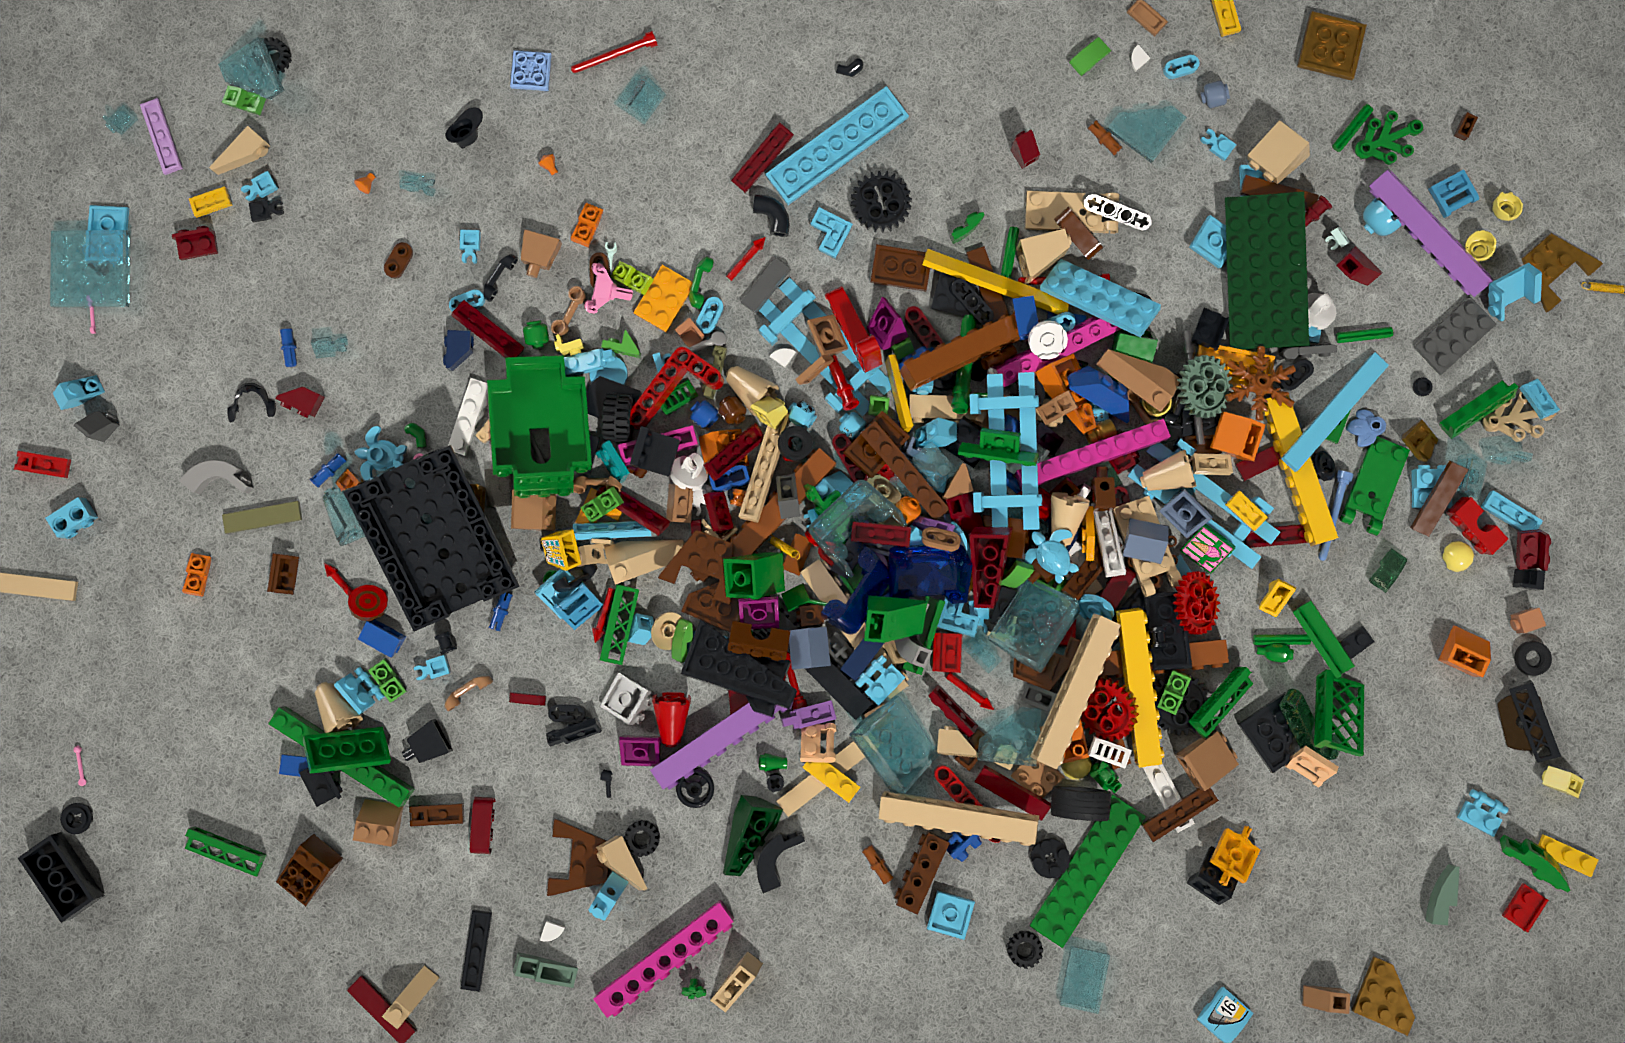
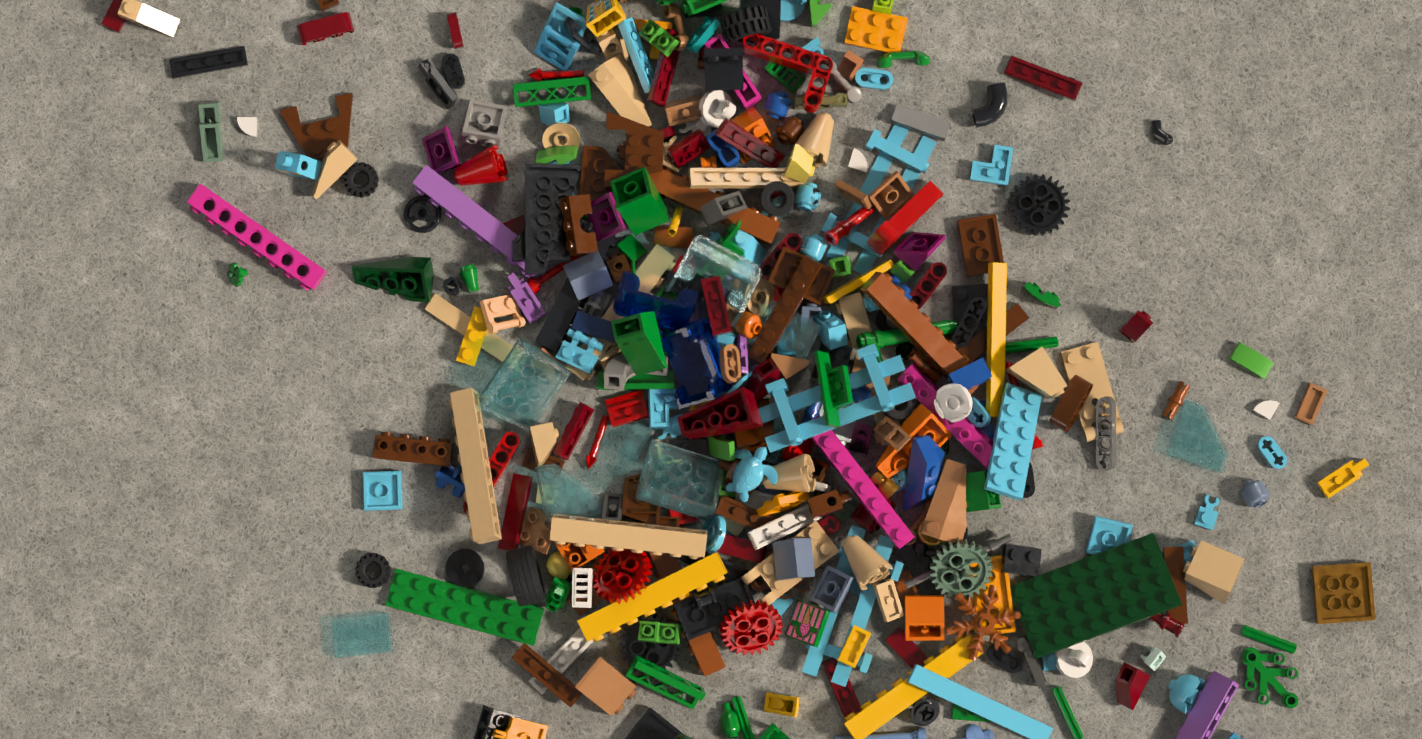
camera: 75 degrees right, 0 degrees up
(606, 776) = (407, 127): black hand -> none
(737, 981) = (257, 311): tan slope -> none
(757, 245) = (956, 101): red piece -> none
(766, 868) = (377, 302): black arch -> none
(837, 145) = (1079, 145): medium azure plate -> none
(877, 864) = (407, 407): dark orange pin -> none

